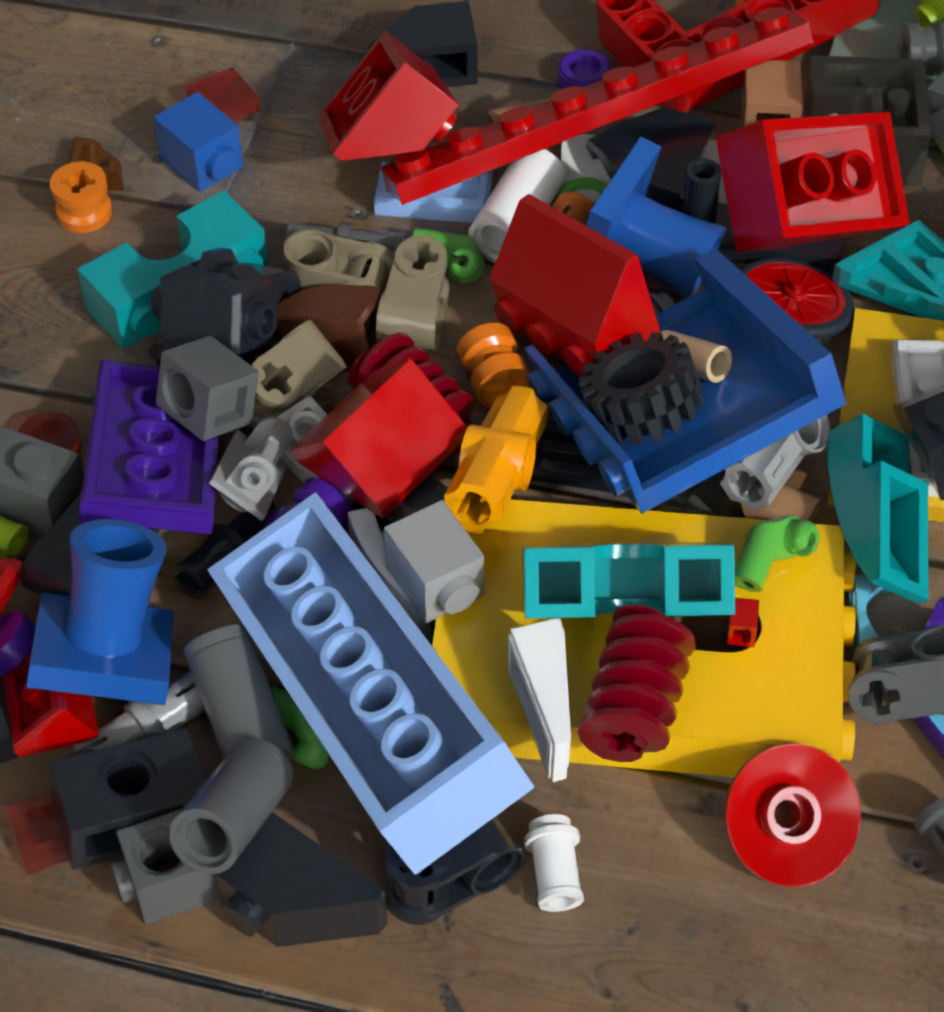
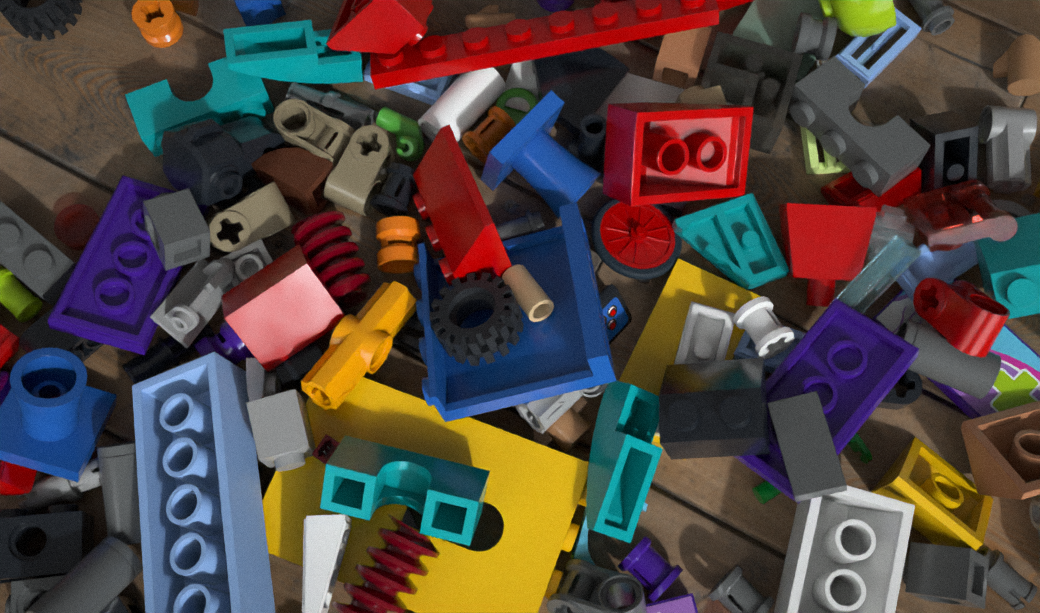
camera: 15 degrees right, 20 degrees up
(289, 184) = (290, 54): none -> teal slope
(462, 308) = (385, 201): none -> black bush
(501, 580) = (325, 449): none -> dark red piece
(743, 625) = (486, 534): red piece -> none
(771, 542) = (526, 472): bright green arm -> none

